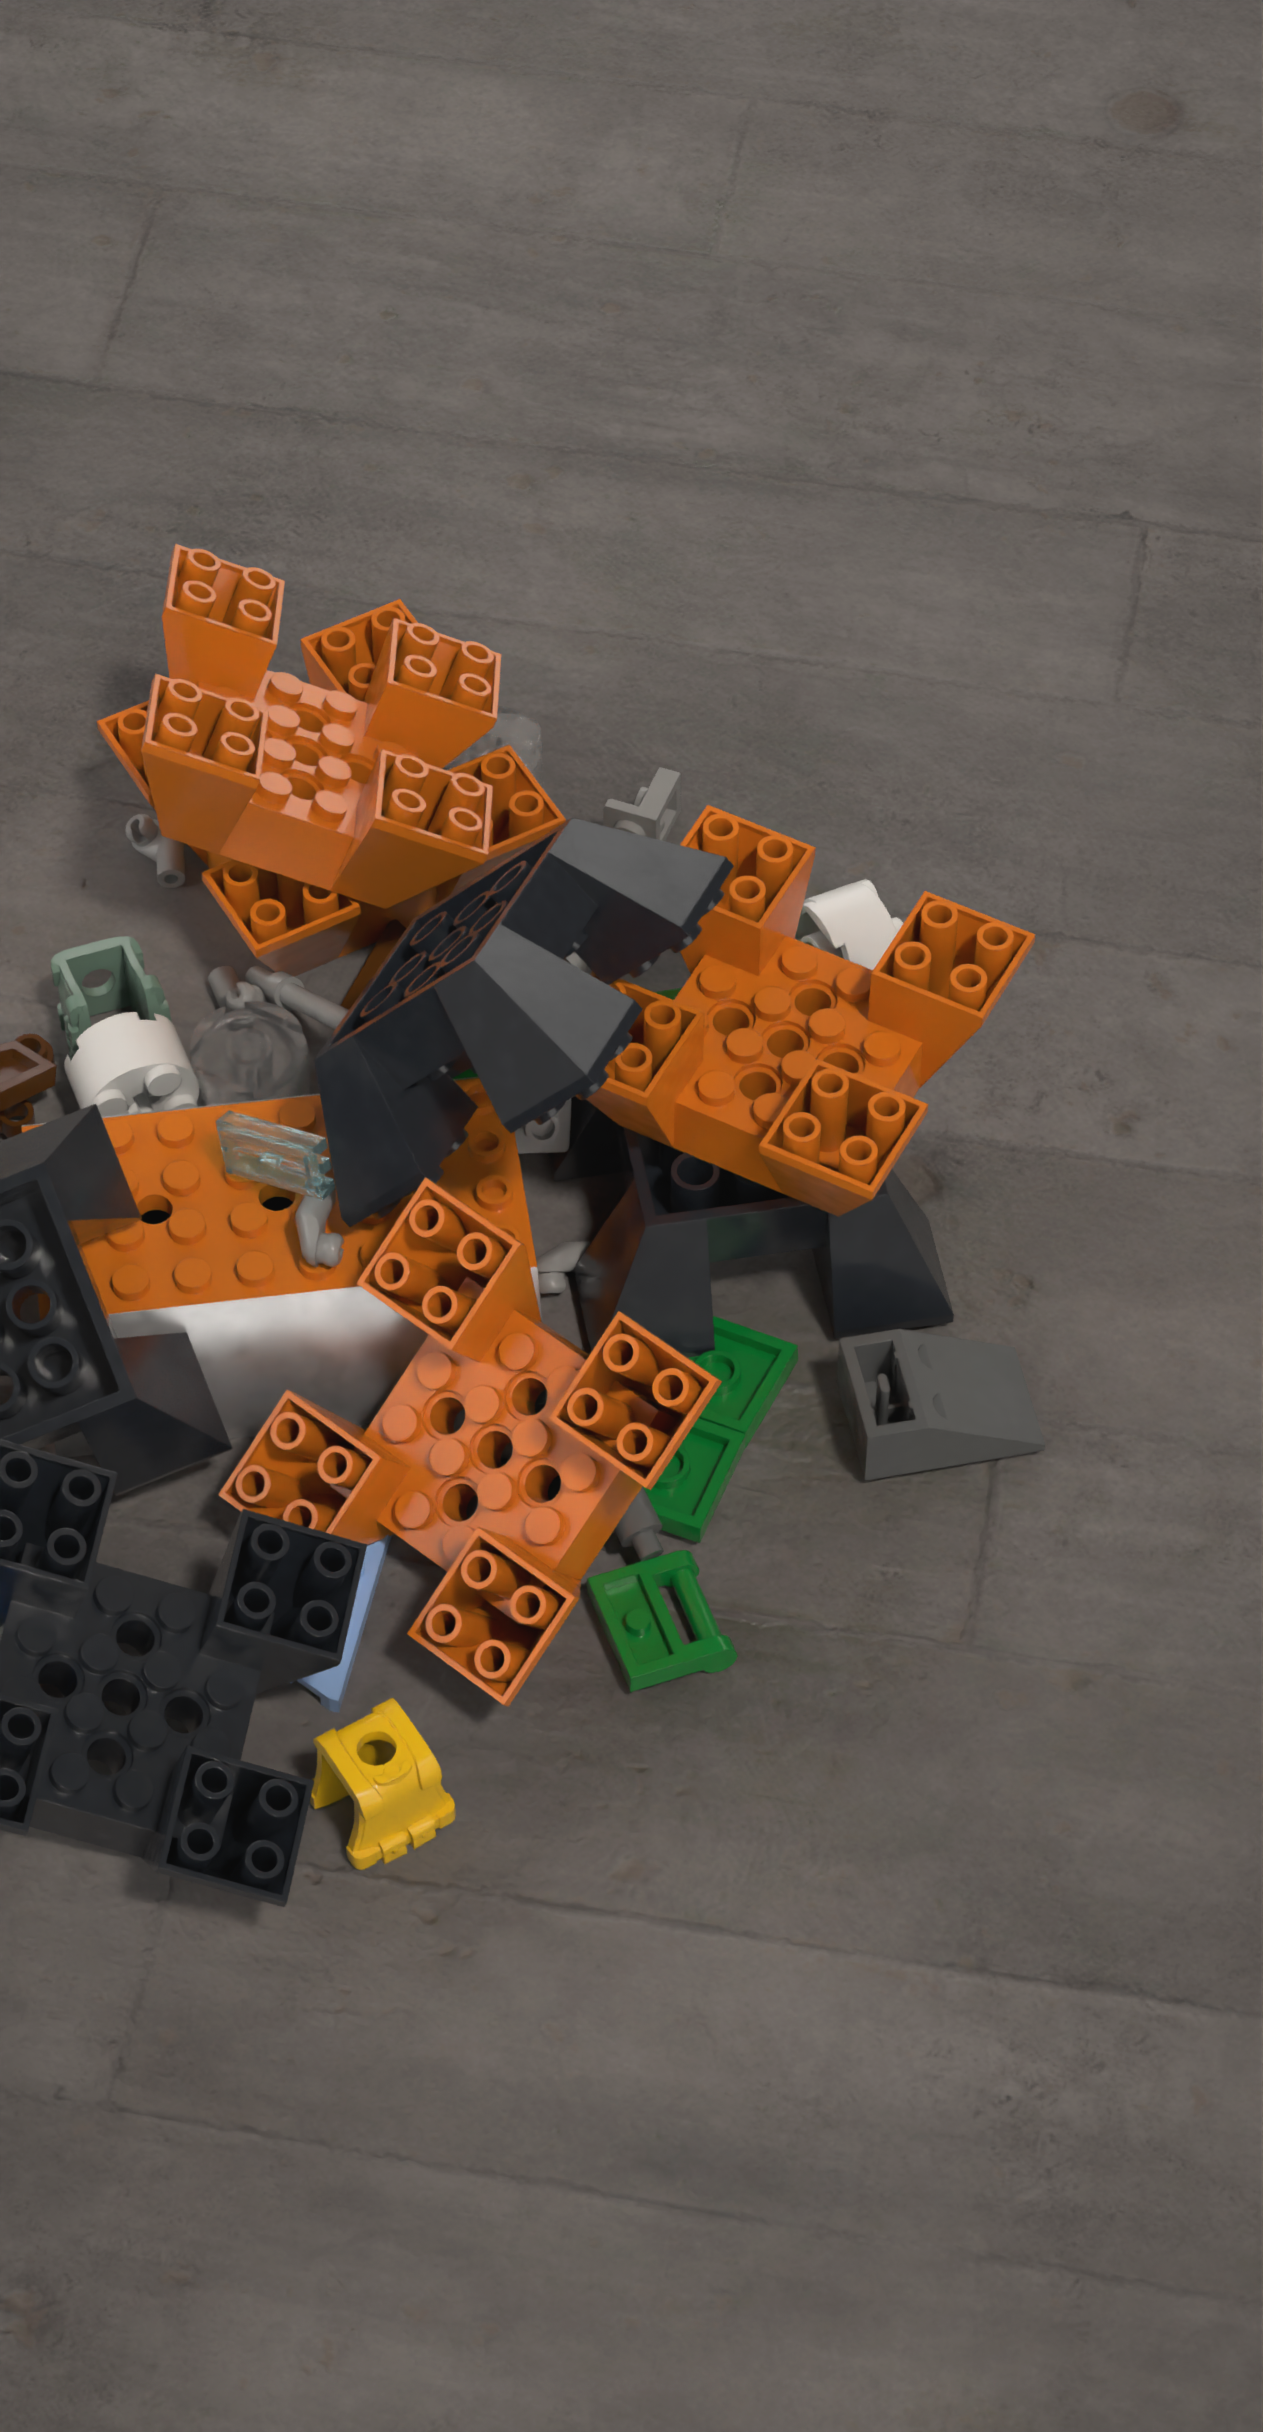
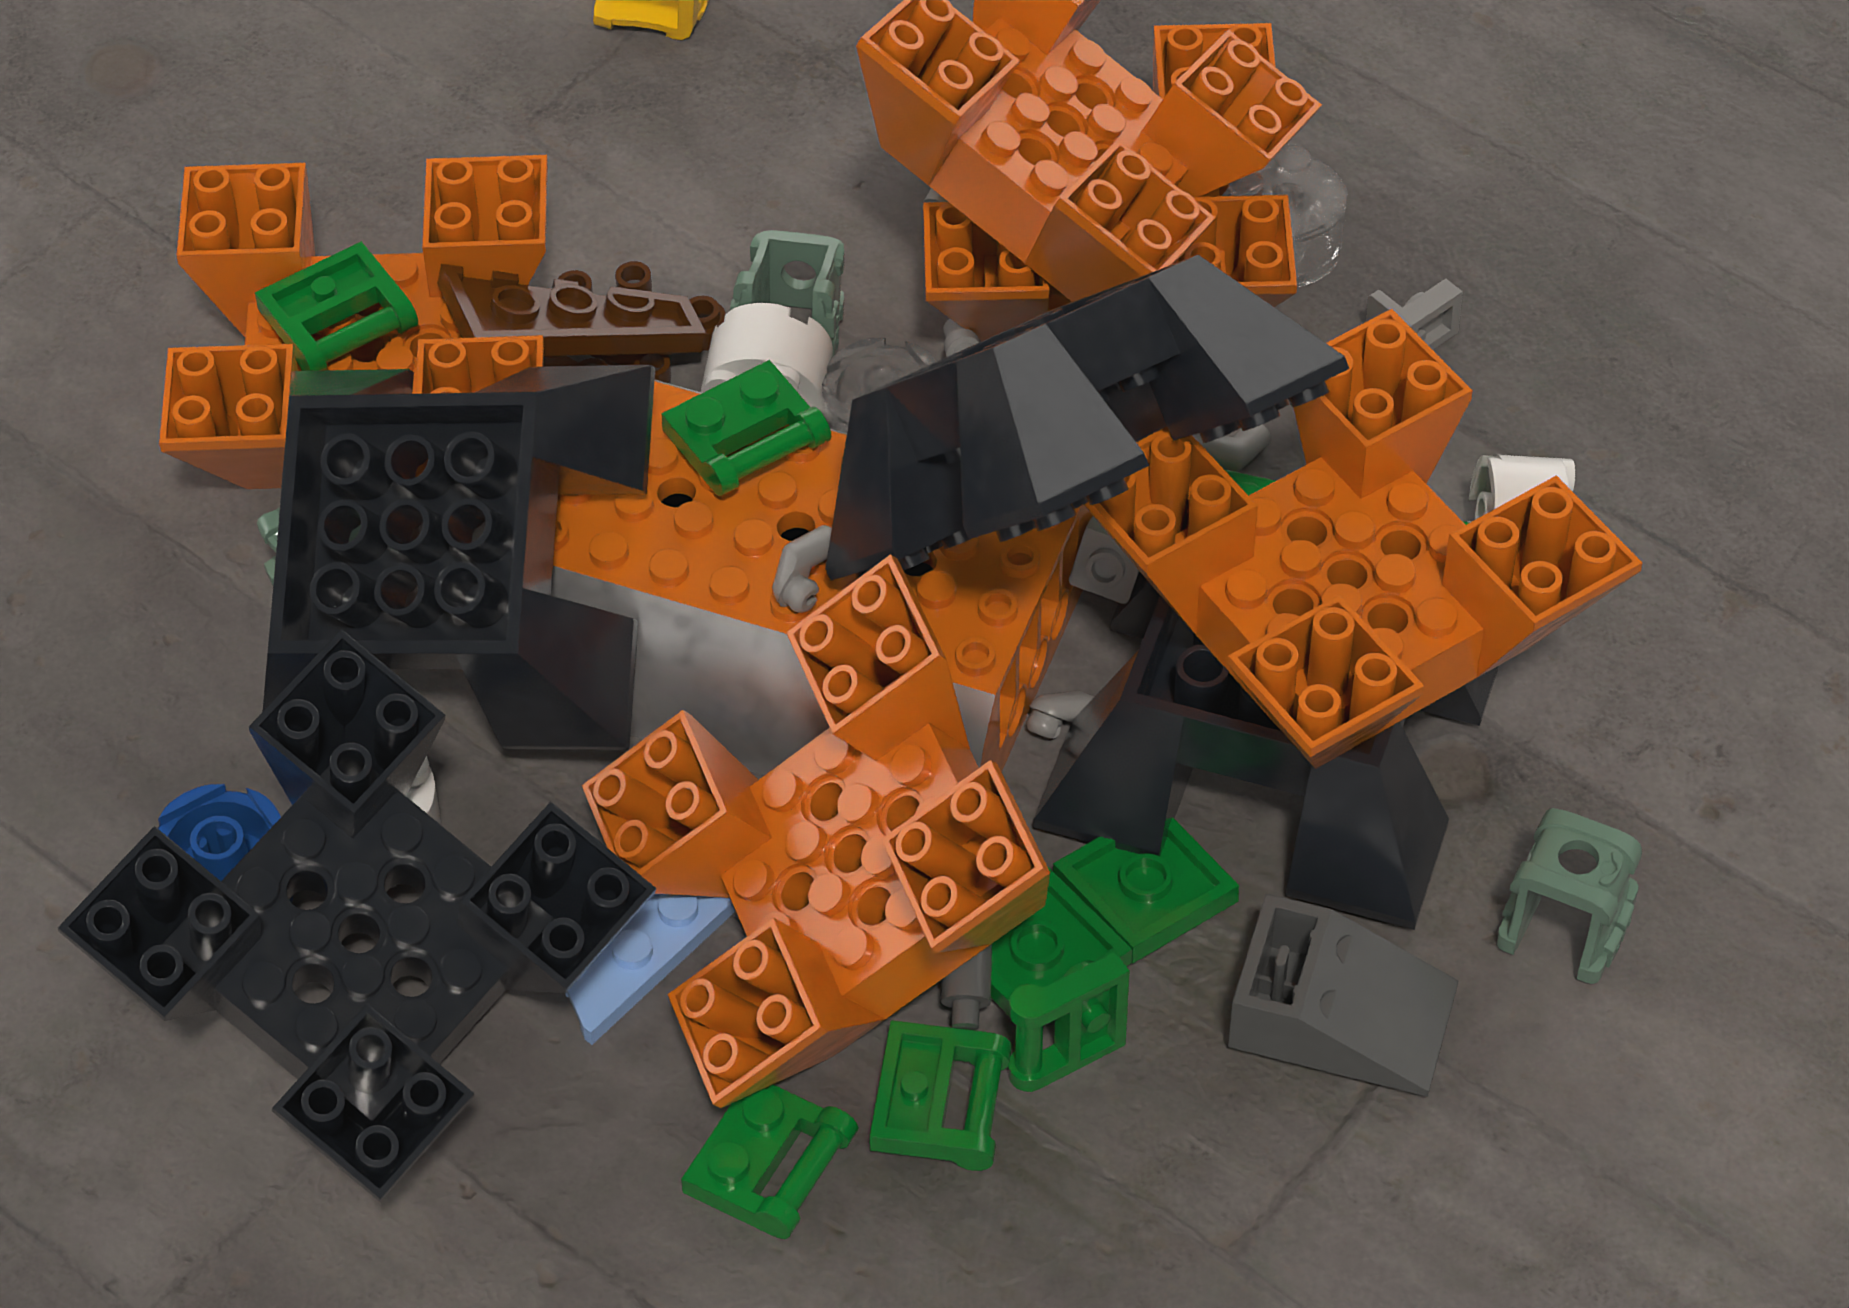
camera: 30 degrees right, 0 degrees up
(172, 1120) = (737, 415): none -> green plate
(230, 991) = (922, 330): light grey arm -> none
(275, 1145) = (797, 483): clear light blue tile -> none
(389, 1778) = (563, 1130): yellow piece -> none
(530, 1737) = (751, 1146): none -> green plate
(739, 1513) = (1088, 1018): none -> green plate
(1044, 1225) = (1603, 892): none -> sand green piece

